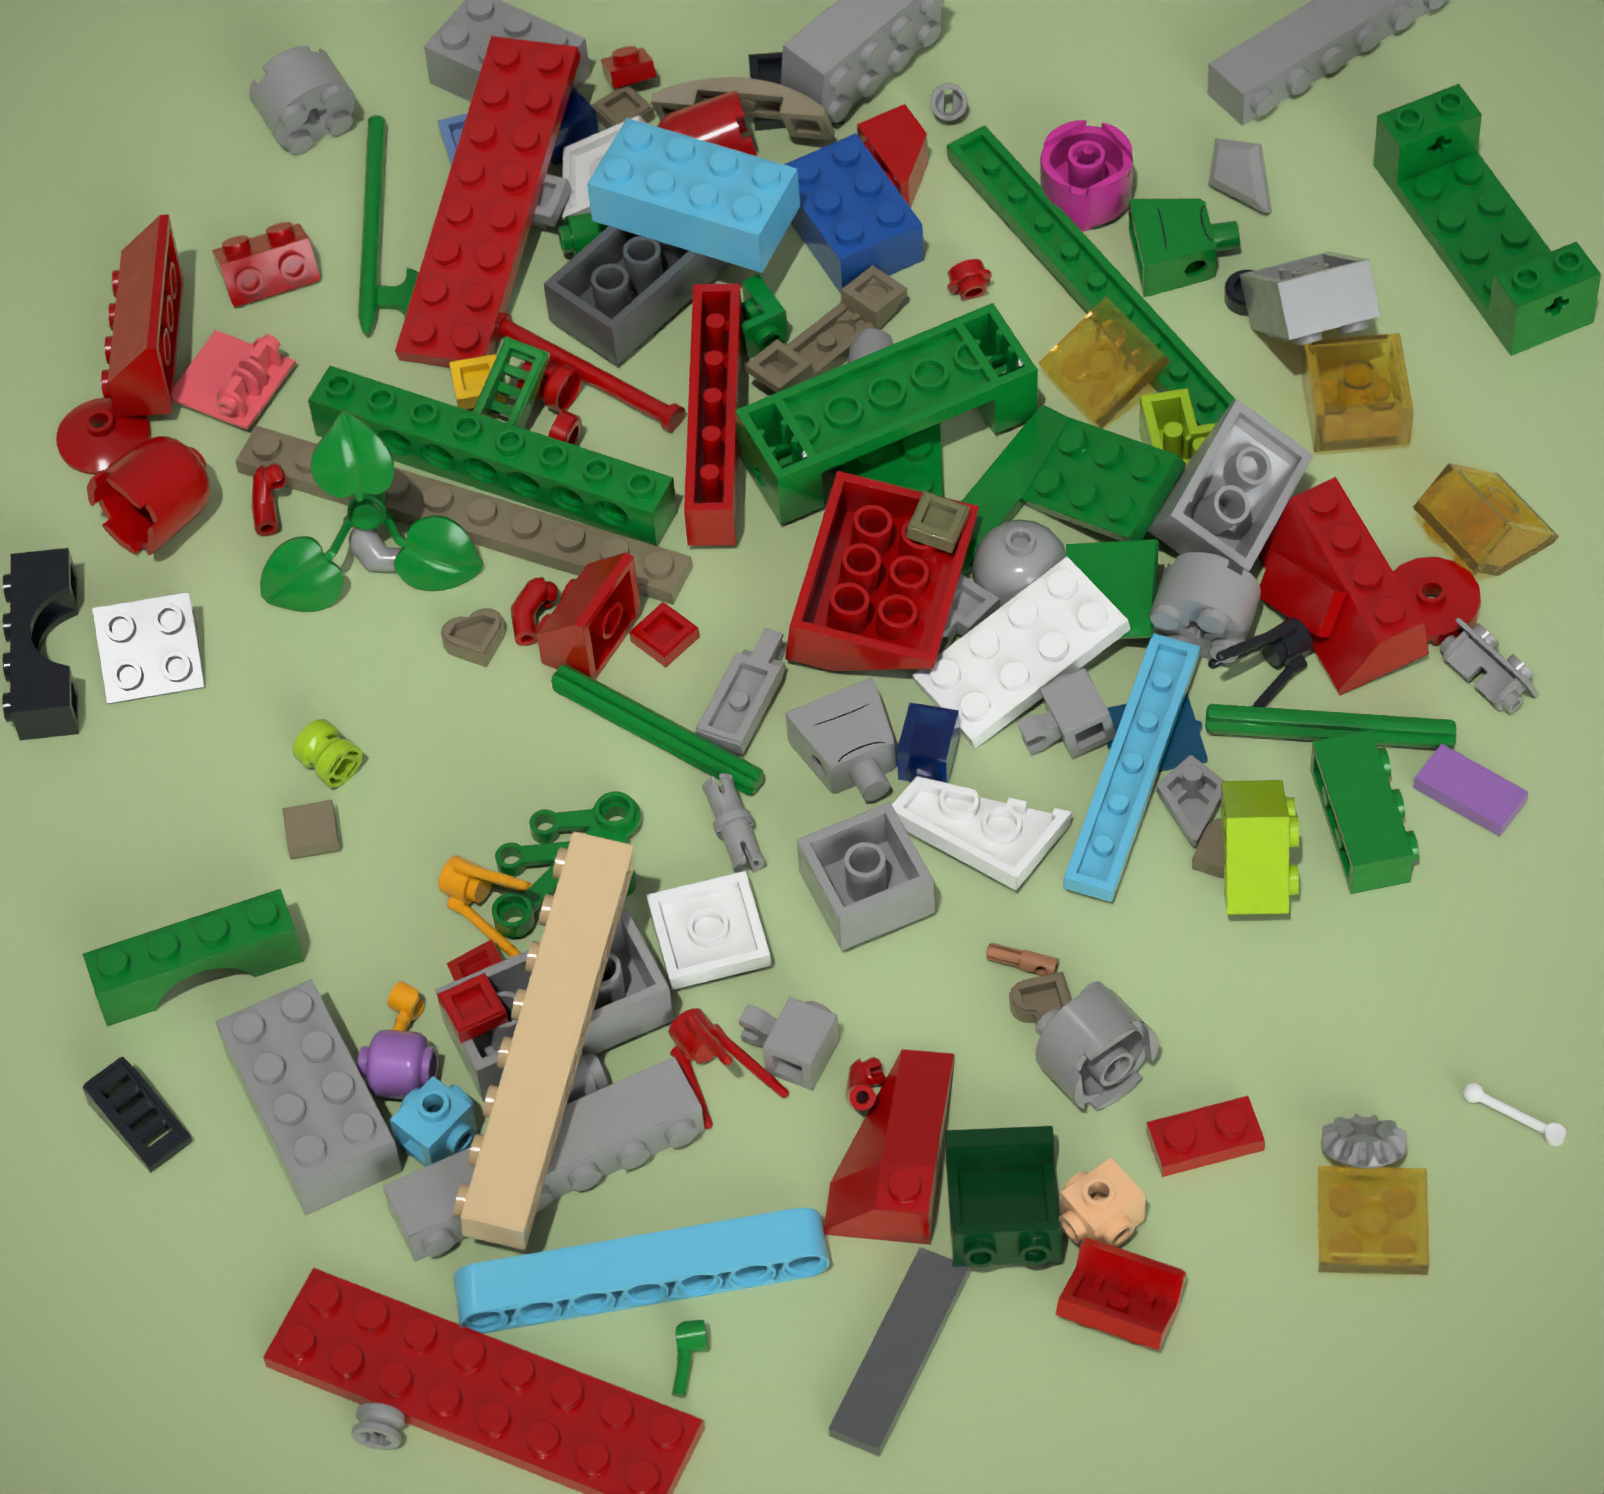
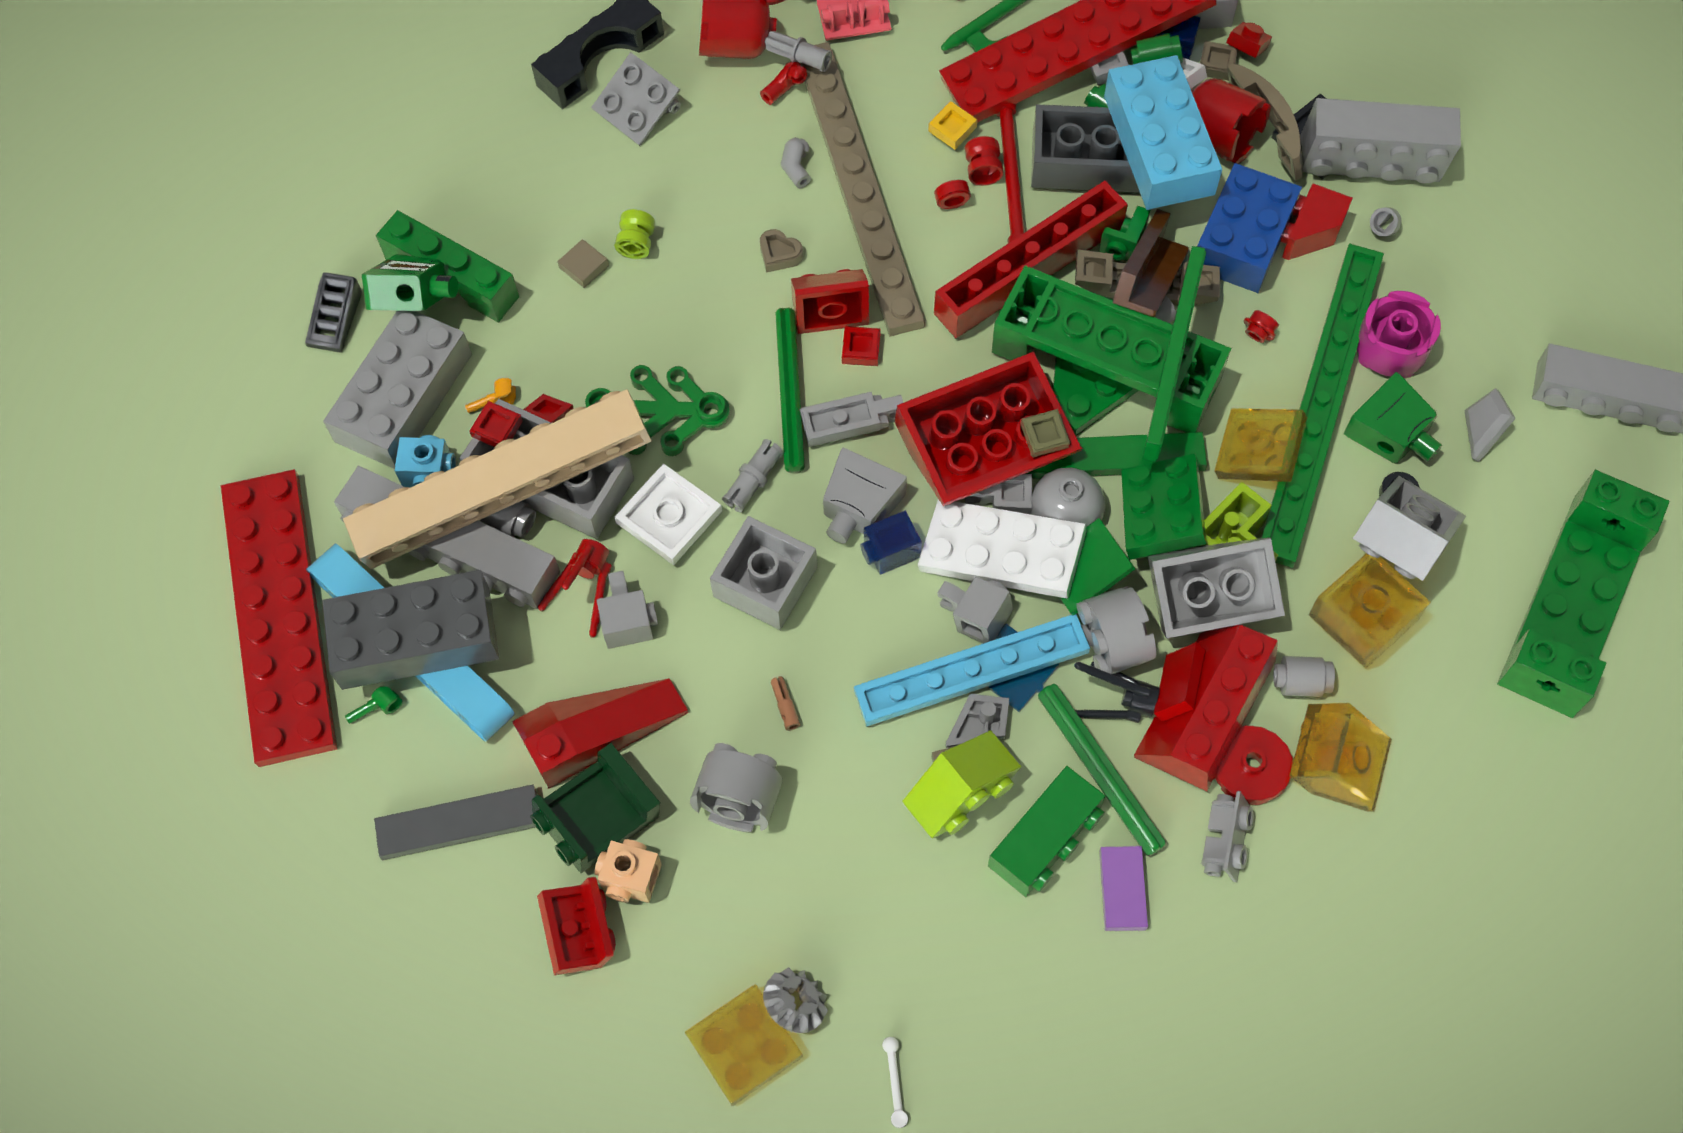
camera: 50 degrees right, 10 degrees up
(202, 991) = (407, 284): none -> green torso
(250, 453) = (798, 50): none -> light grey axle
(359, 465) = (792, 94): green plant -> none
(378, 1426) = (214, 574): light grey bush -> none
(397, 1063) = (451, 416): medium lavender head -> none
(471, 883) = (604, 368): light orange plant -> none
(494, 384) = (937, 139): green slope -> none
(502, 457) = (904, 169): green brick -> none
(525, 606) = (820, 260): red arm -> none
(583, 145) = (1157, 48): none -> green brick
(651, 1236) = (410, 629): none -> dark grey brick
(828, 315) = (1150, 268): none -> reddish brown panel
(860, 1079) = (622, 674): red arm -> none
(963, 346) = (1174, 354): none -> green tile
(982, 832) = (856, 615): white wing -> none
(1037, 996) = (763, 734): dark tan tile -> none
(1205, 1136) = (736, 898): red plate -> none
(1381, 492) = (1304, 676): none -> light grey brick

